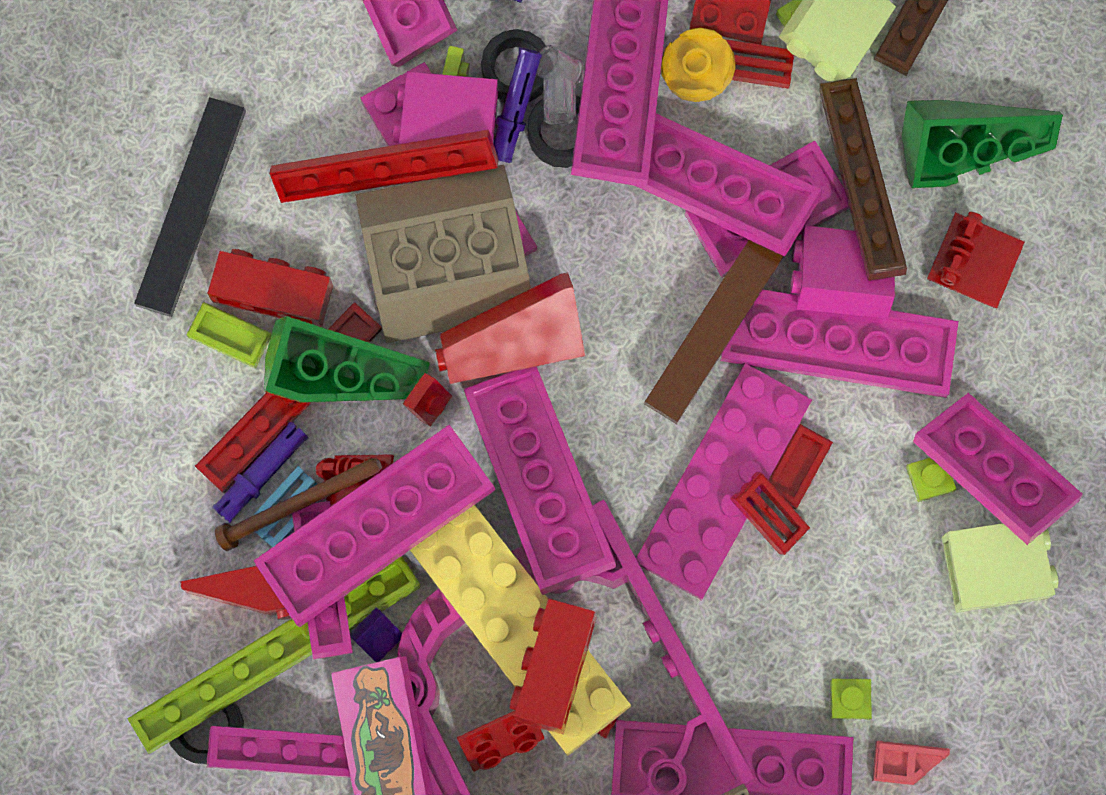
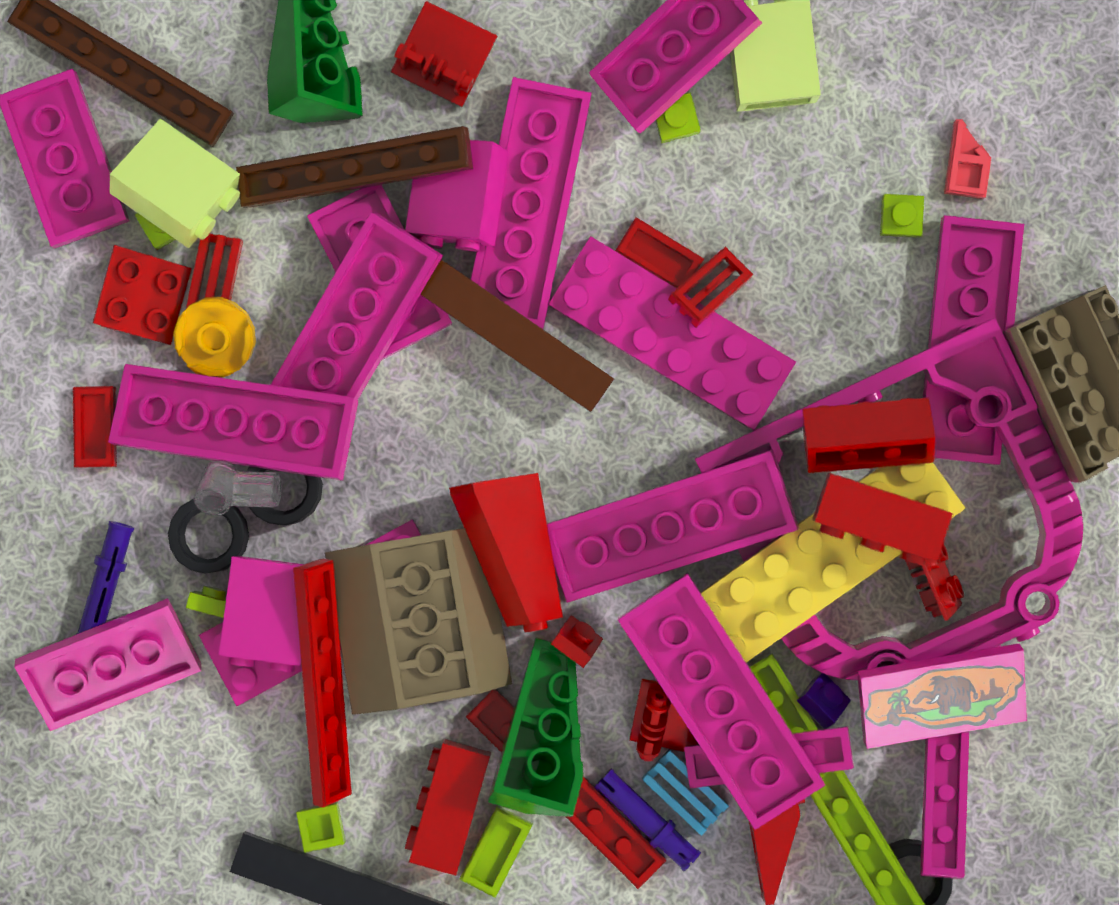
camera: 85 degrees left, 10 degrees up
(229, 536) = (713, 853): reddish brown bar -> none
(250, 175) = (321, 827): none -> lime plate
(511, 122) = (273, 542): dark purple pin -> none
(633, 653) = (868, 435): none -> red brick

